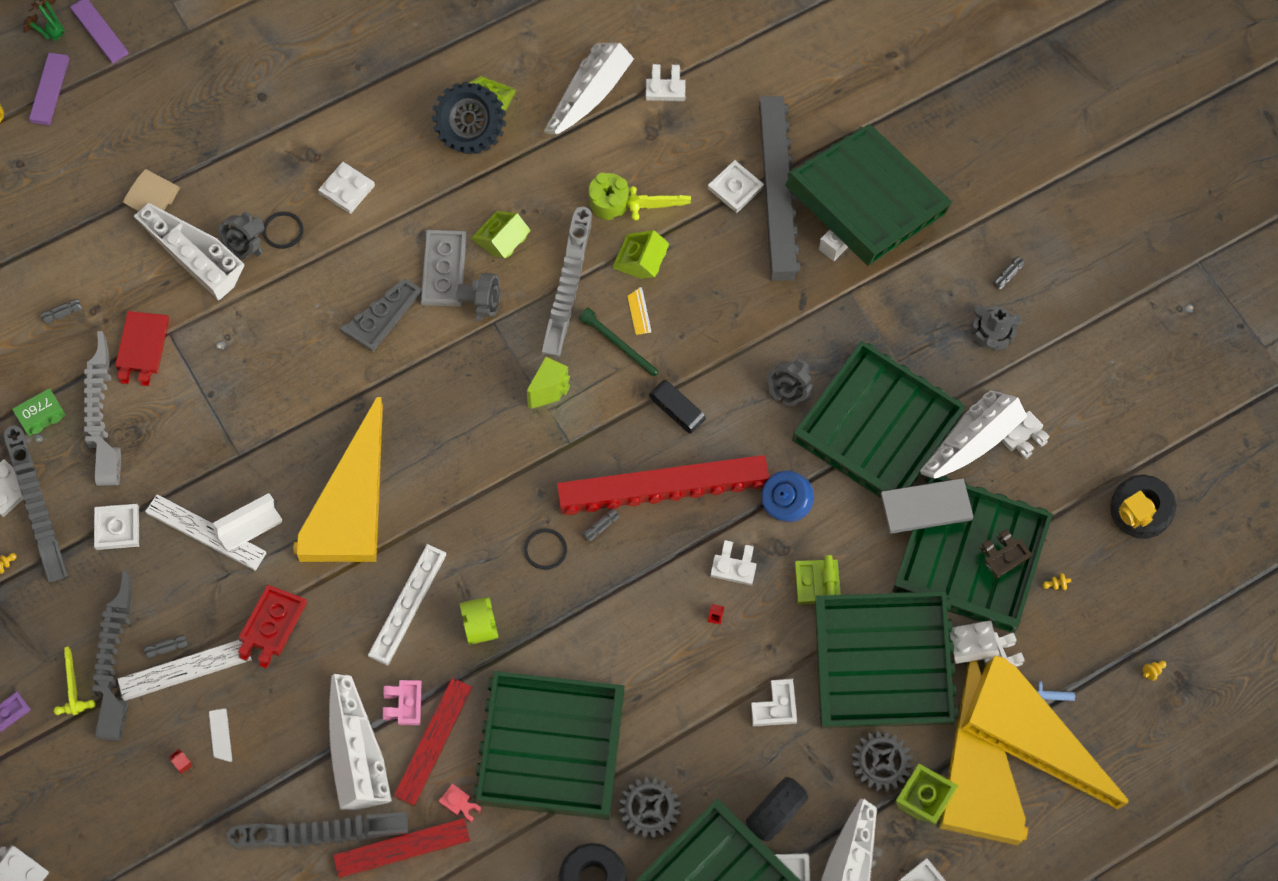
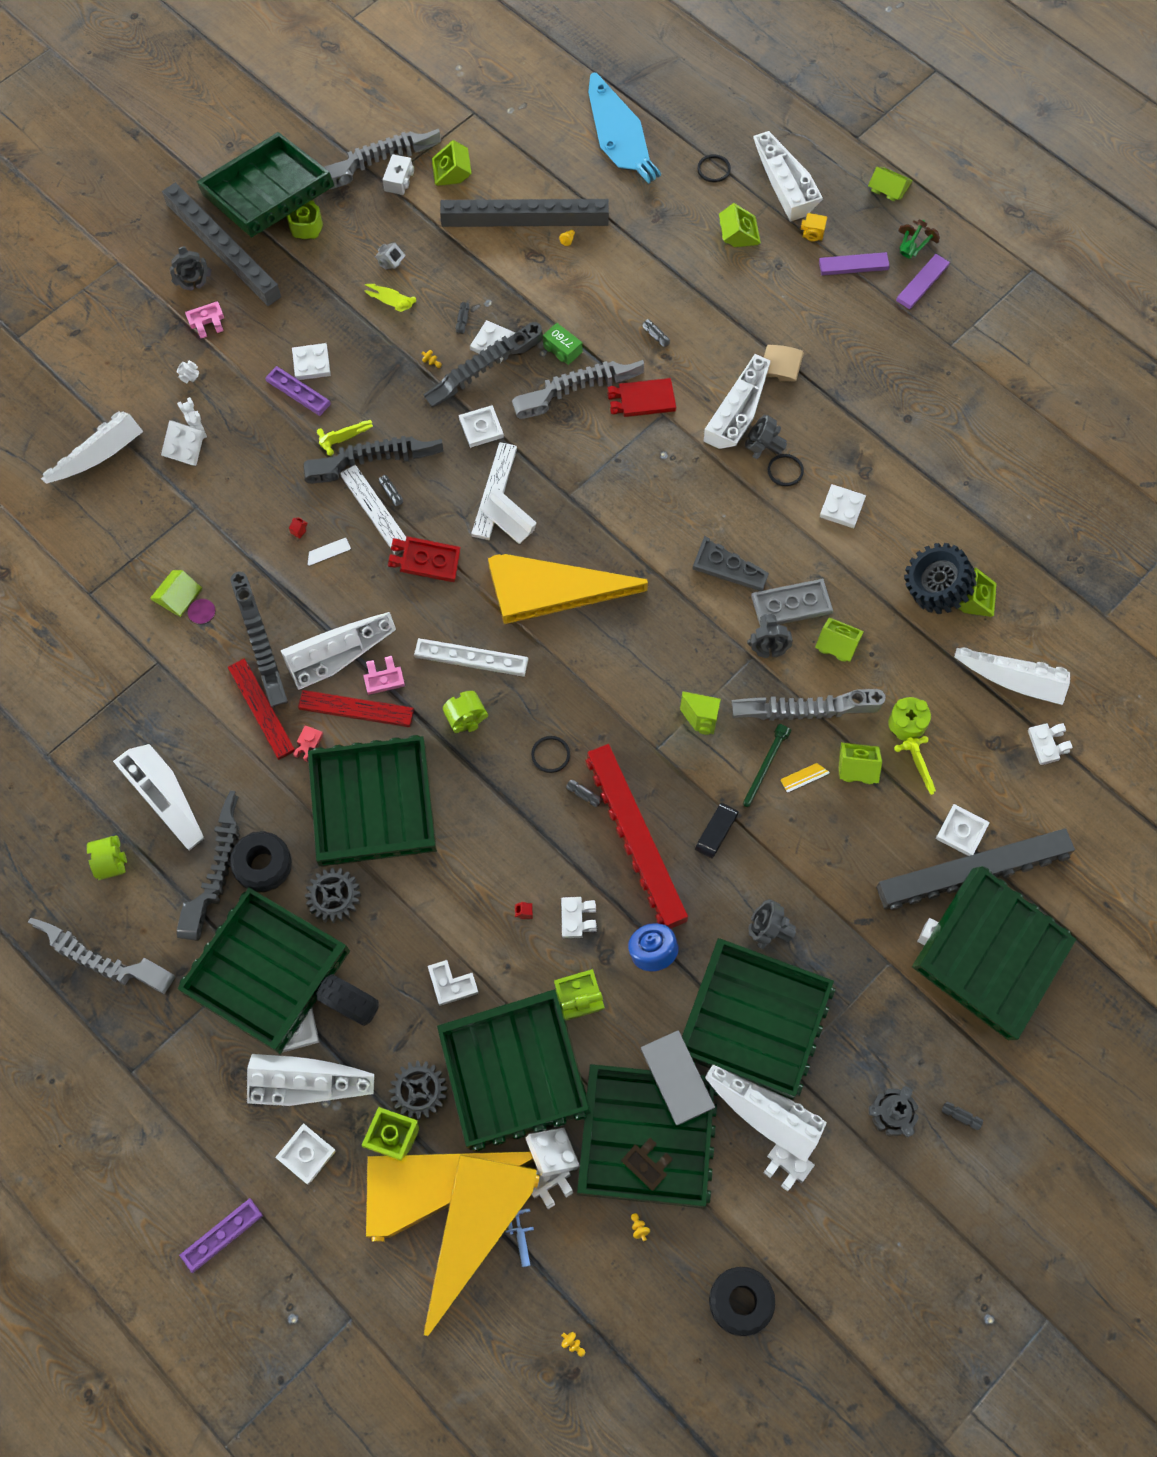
camera: 80 degrees right, 0 degrees up
(1137, 510) = (726, 1289): yellow brick -> none

